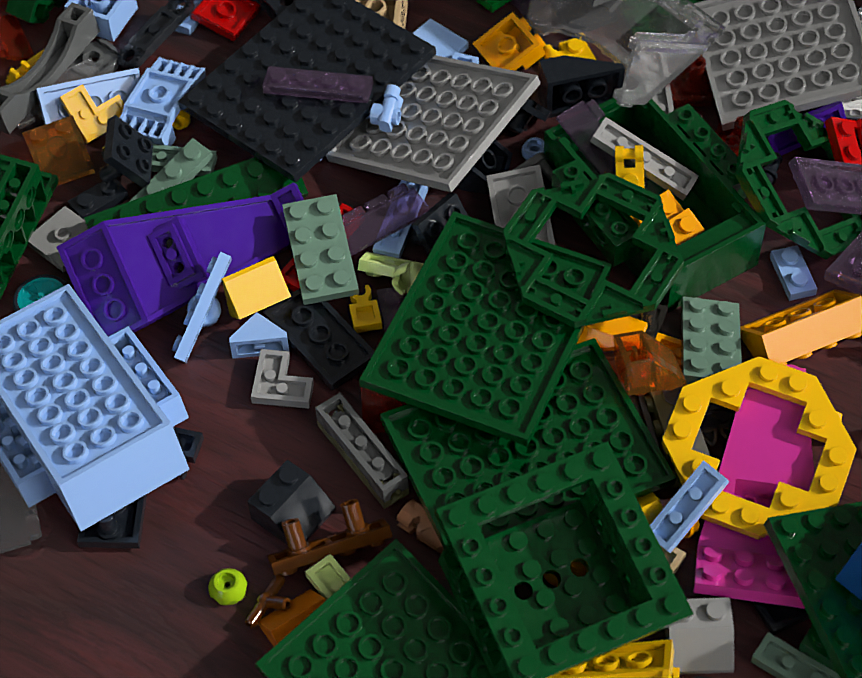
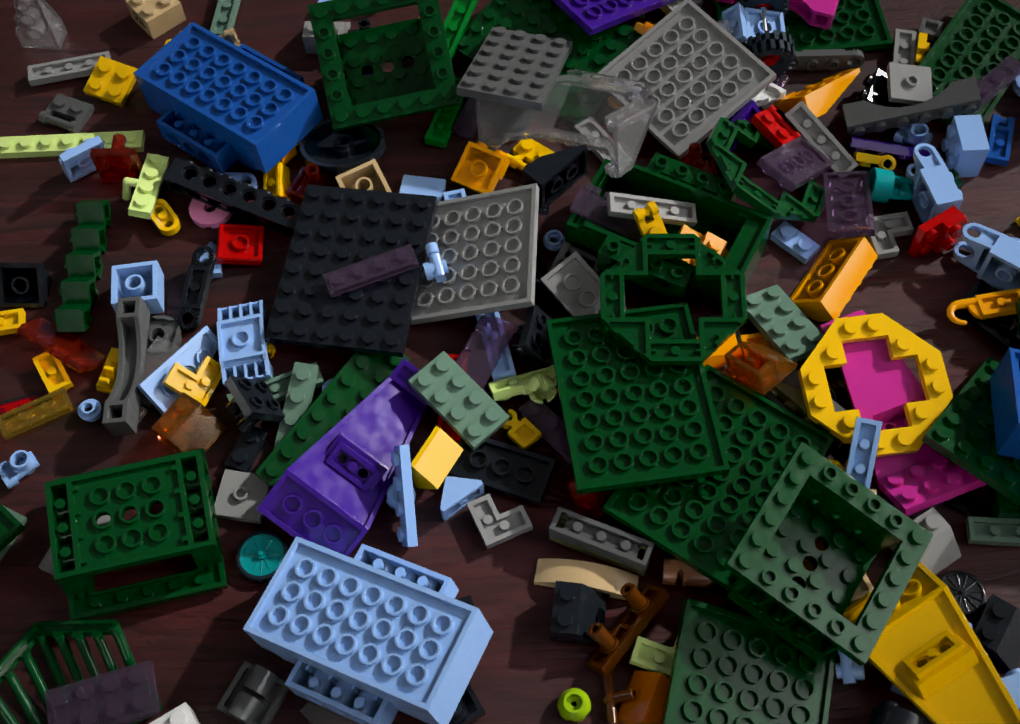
camera: 30 degrees left, 5 degrees up
(329, 476) = (595, 575): none -> tan slope

